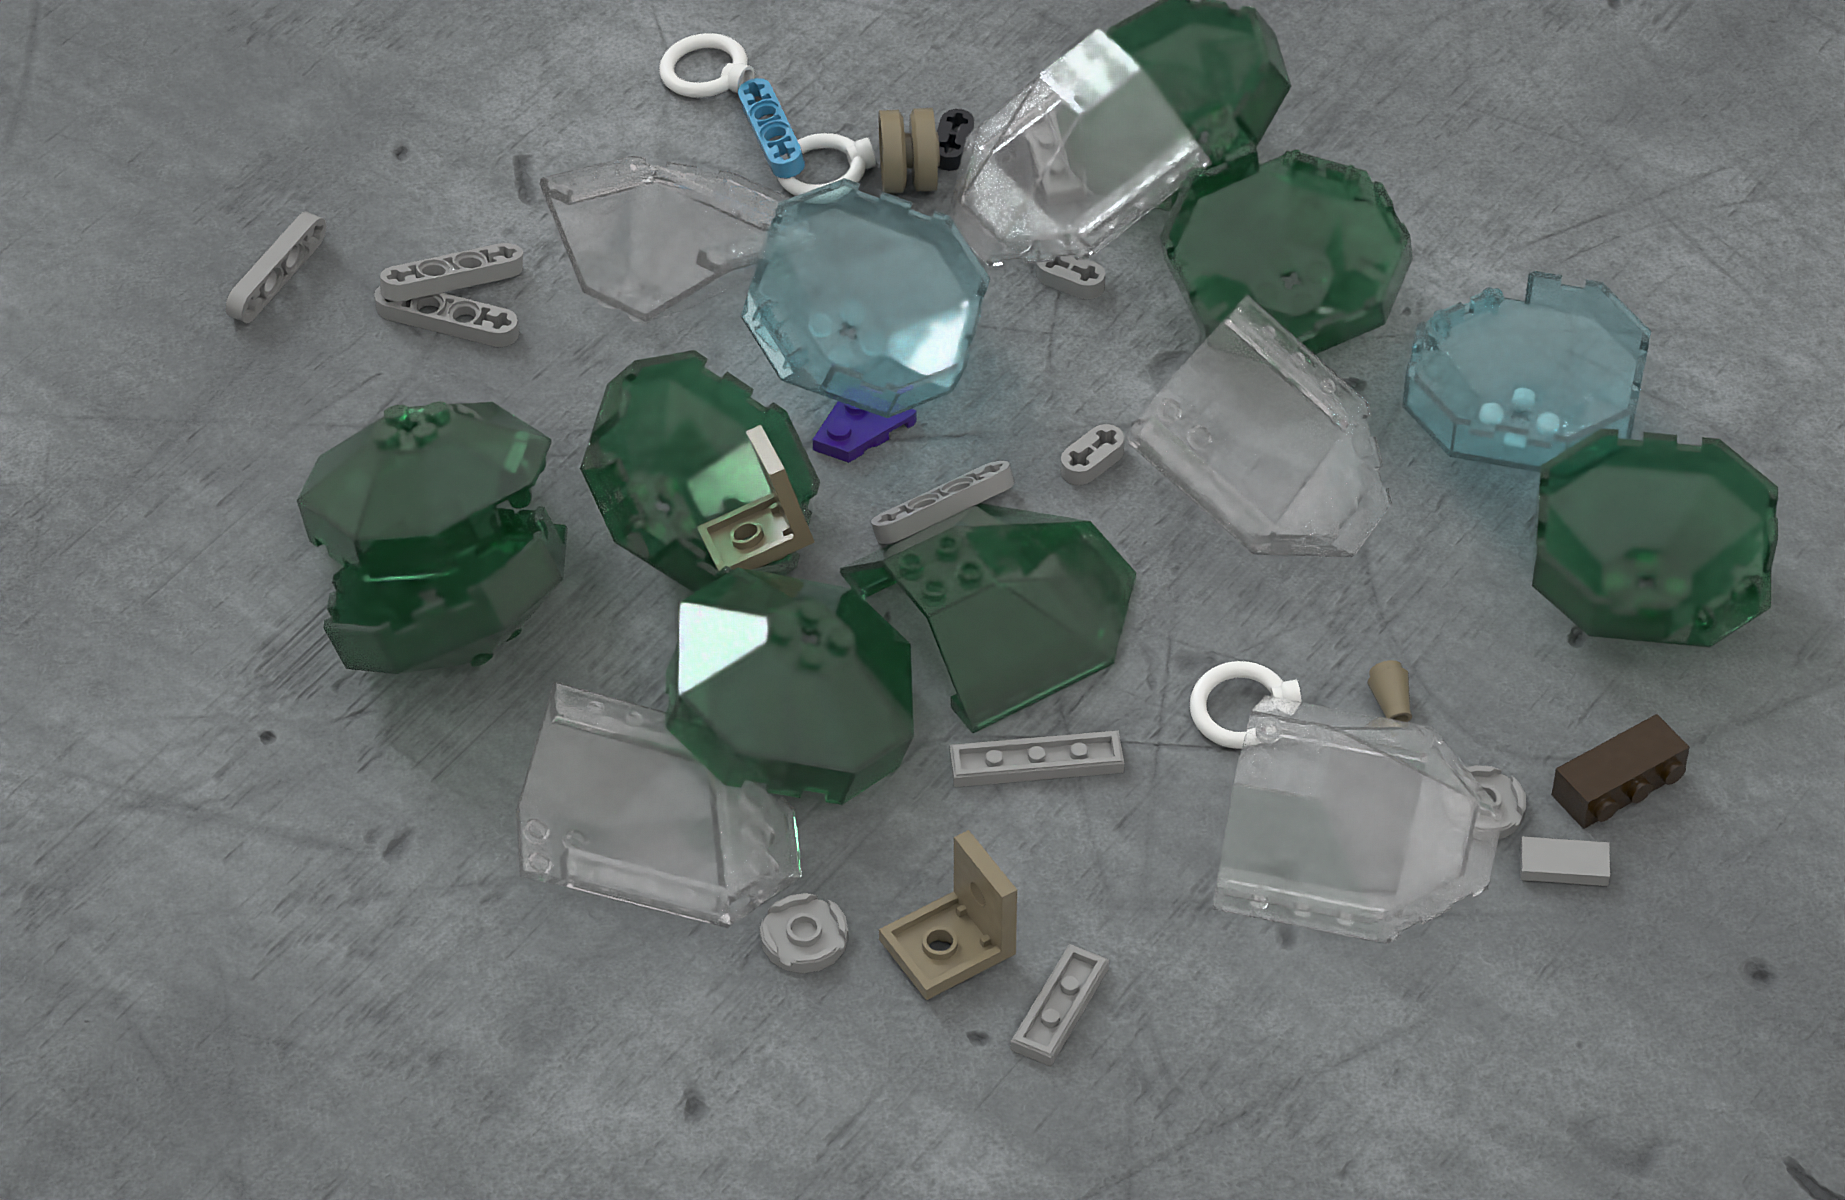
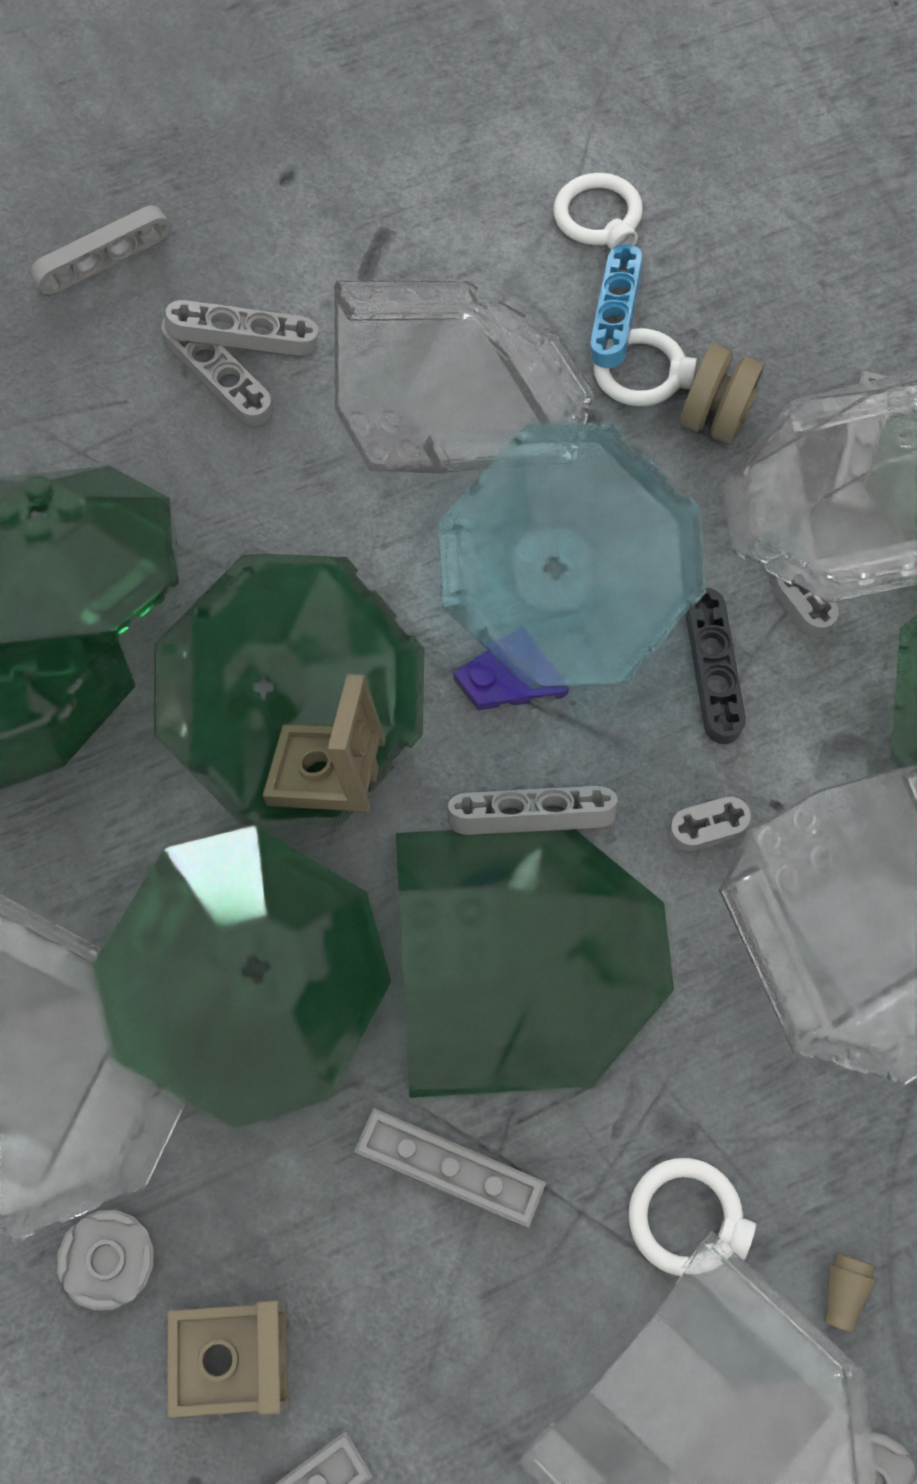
camera: 25 degrees right, 20 degrees up
(951, 139) = (774, 390): black beam -> none
(1031, 344) = (719, 664): none -> black beam

